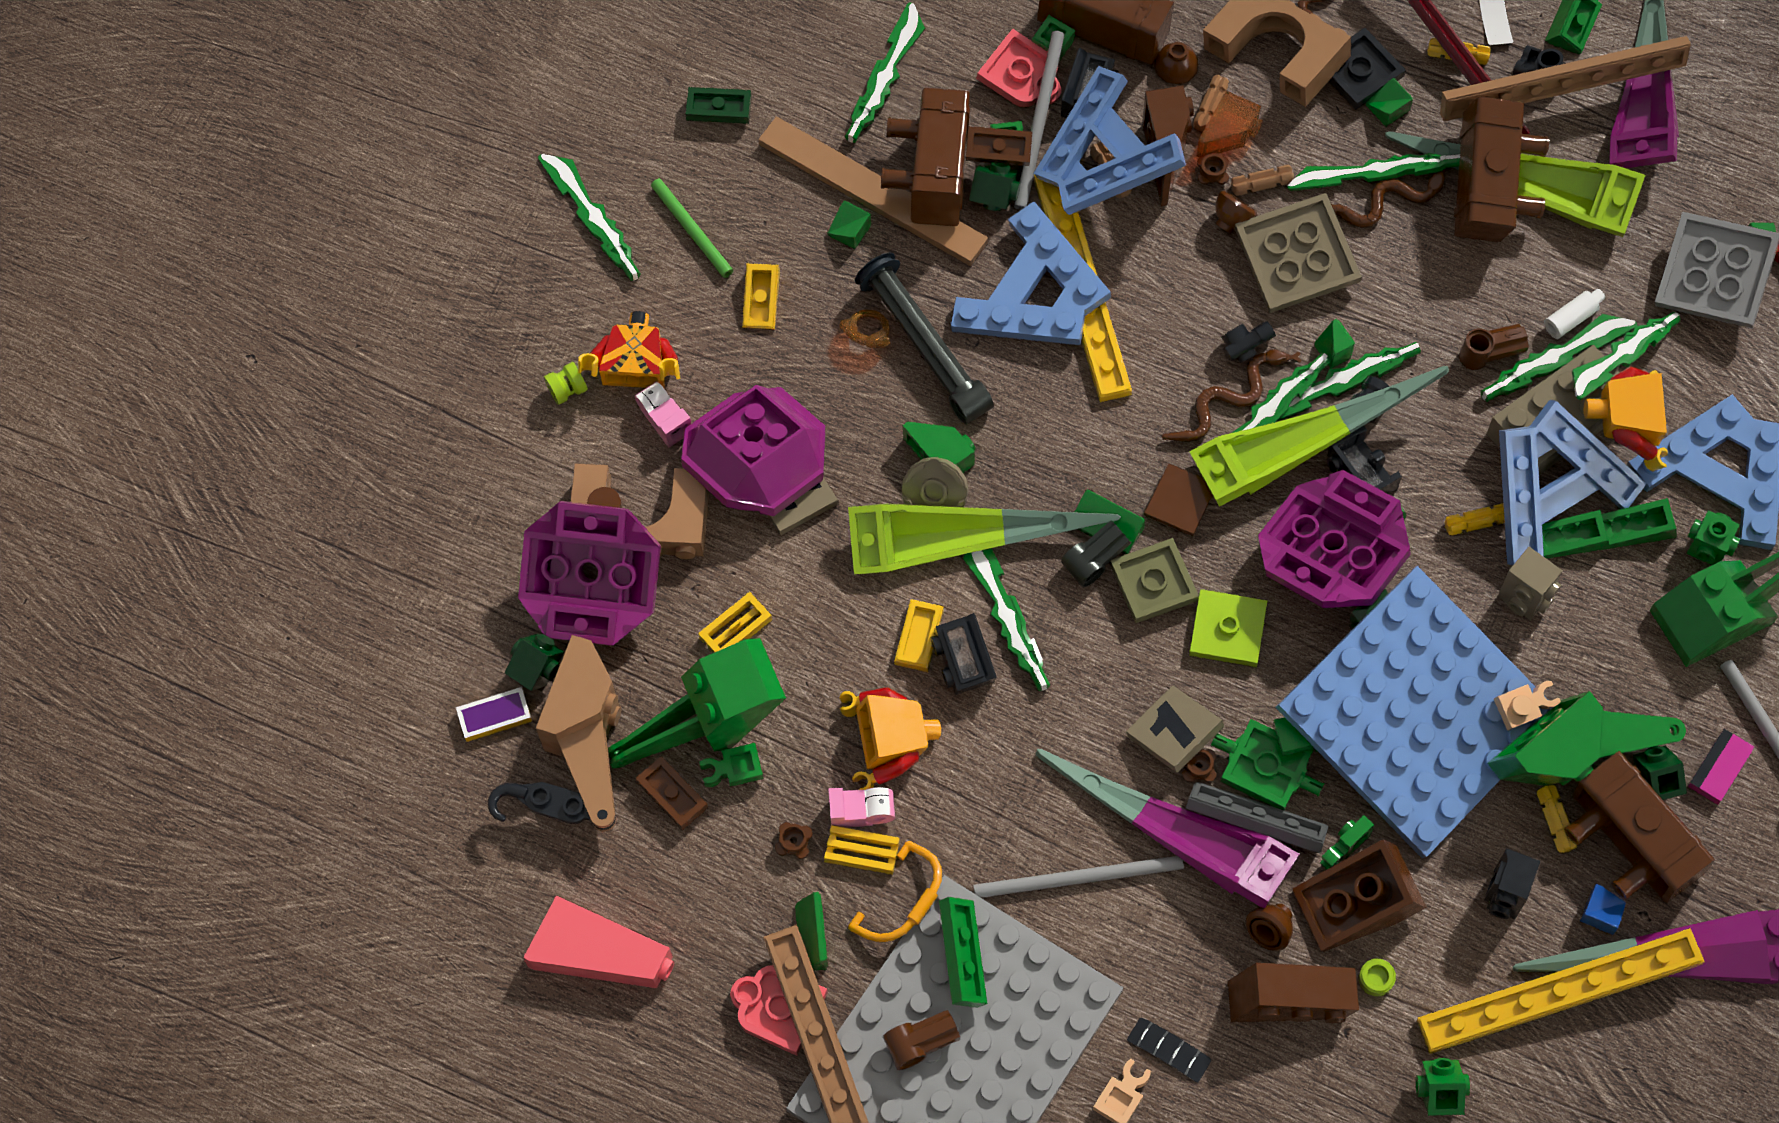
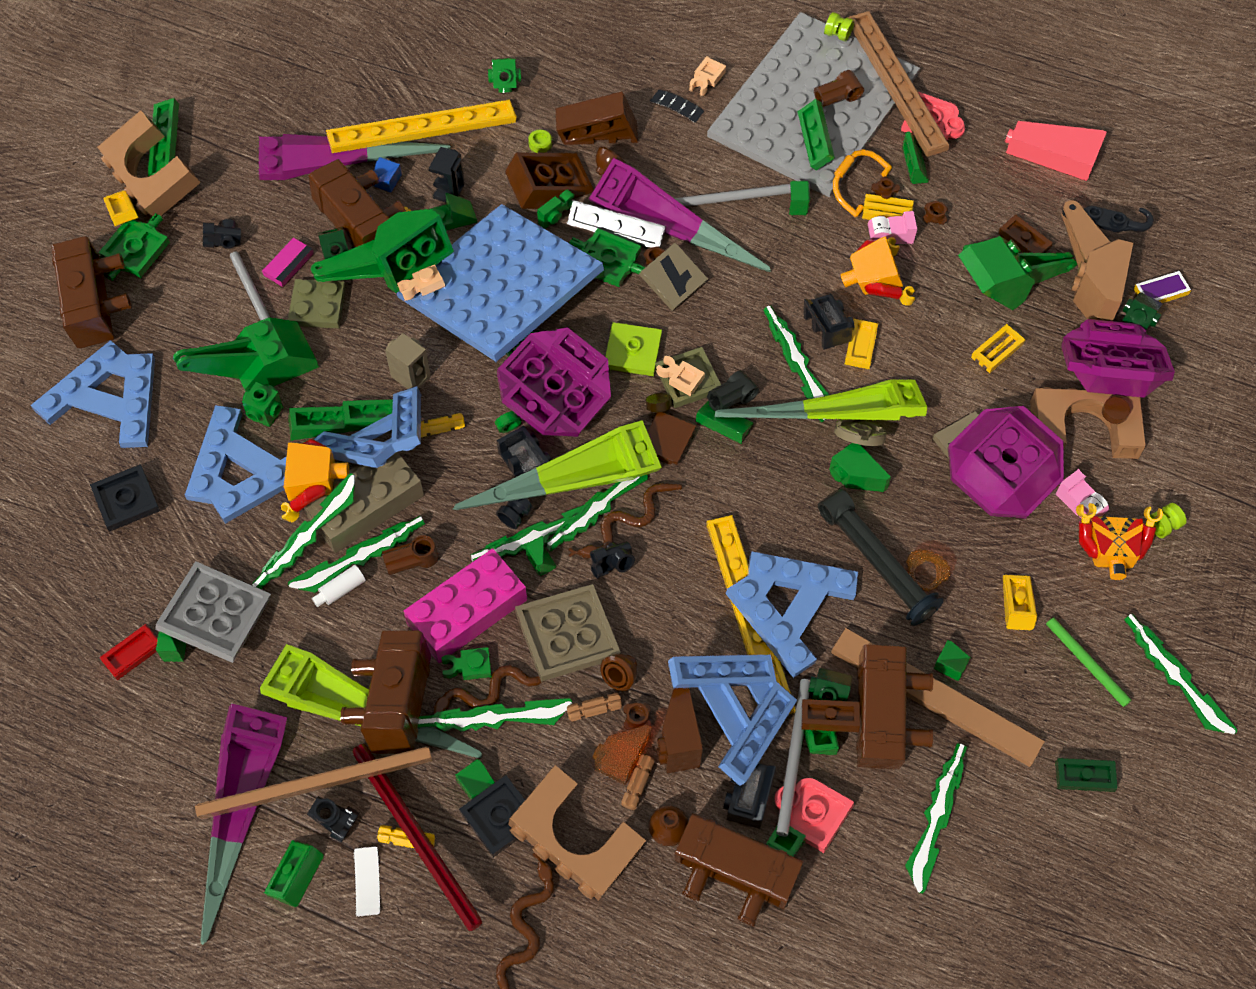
camera: 175 degrees right, 5 degrees down
(863, 891) = (885, 188): none -> reddish brown plate
(991, 858) = (799, 198): none -> green slope
(1162, 560) = (682, 377): none -> light nougat plate
(1193, 544) = (658, 402): none -> dark brown tile
(1405, 228) = (473, 664): none -> green plate
(1419, 283) = (466, 604): none -> dark pink brick
(1488, 842) = (456, 212): none -> green slope
(1671, 693) = (317, 303): none -> olive plate

